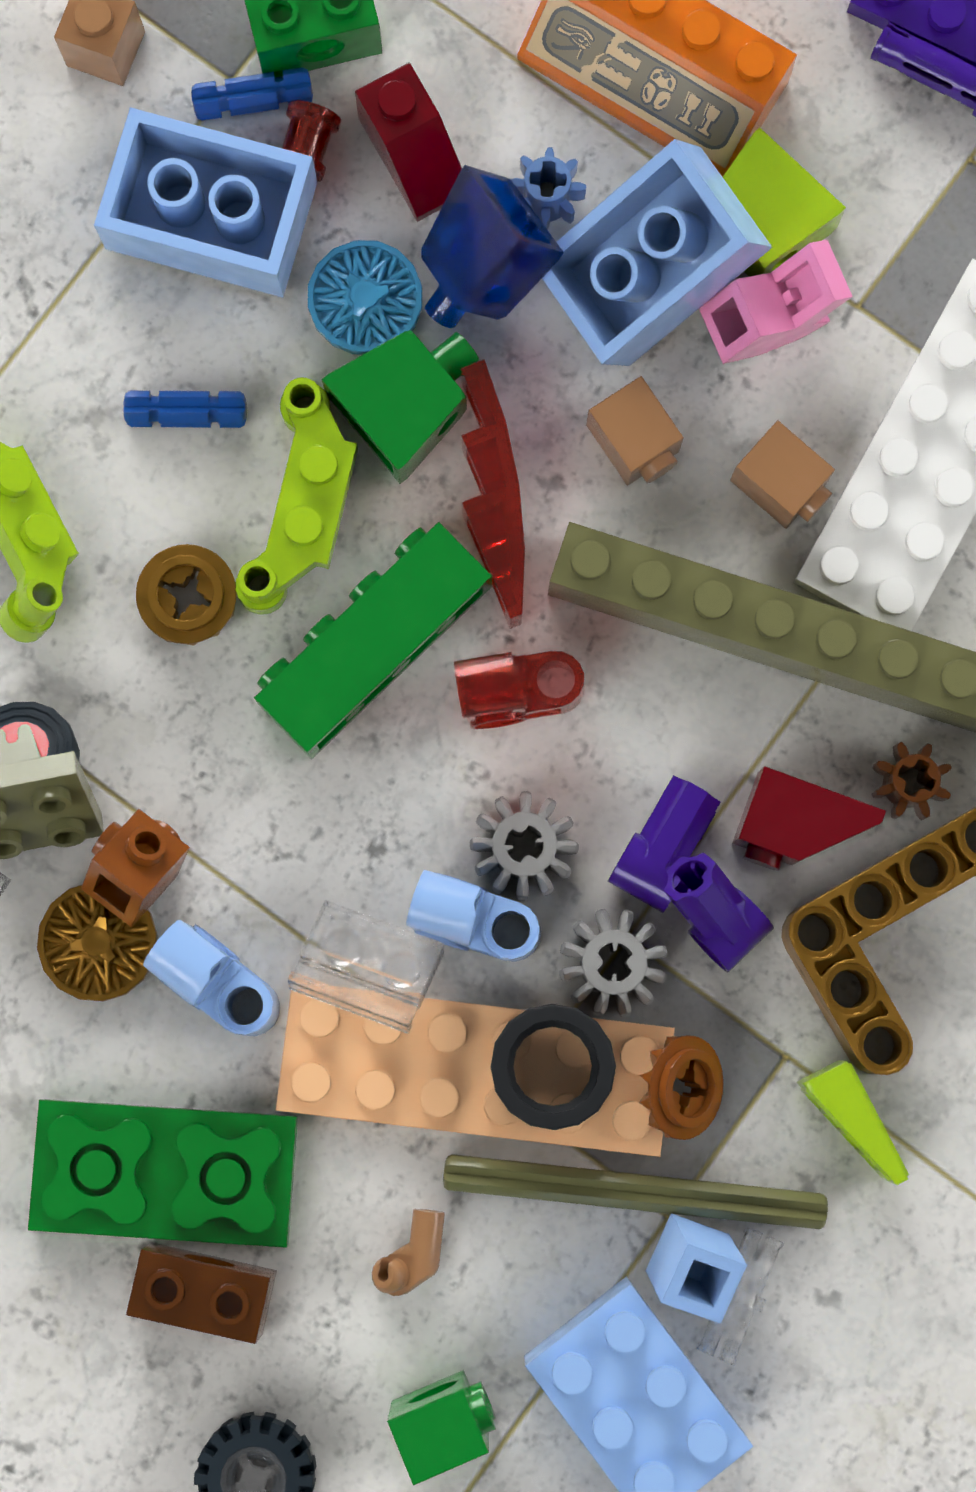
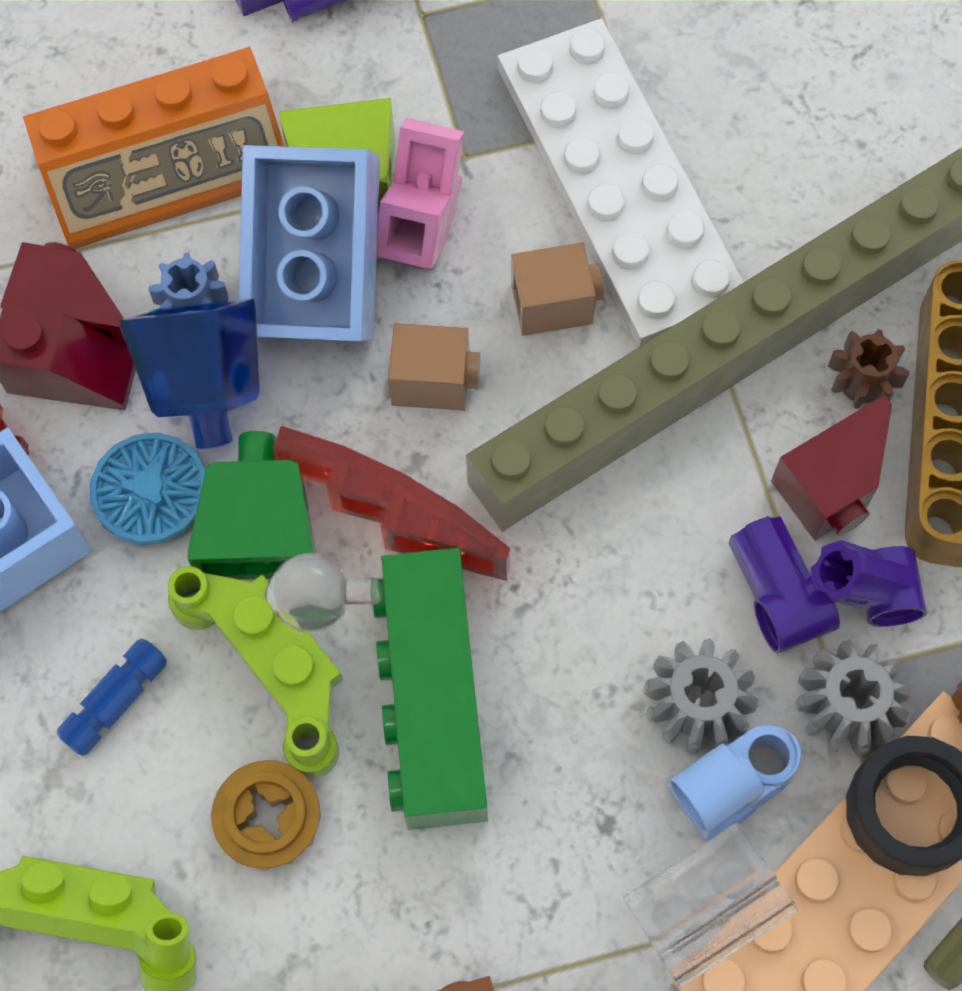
camera: 50 degrees left, 15 degrees down
(369, 495) = (313, 592): none -> clear piece
(467, 89) = (61, 282): none -> dark red slope
(505, 688) = (560, 604): clear red piece -> none

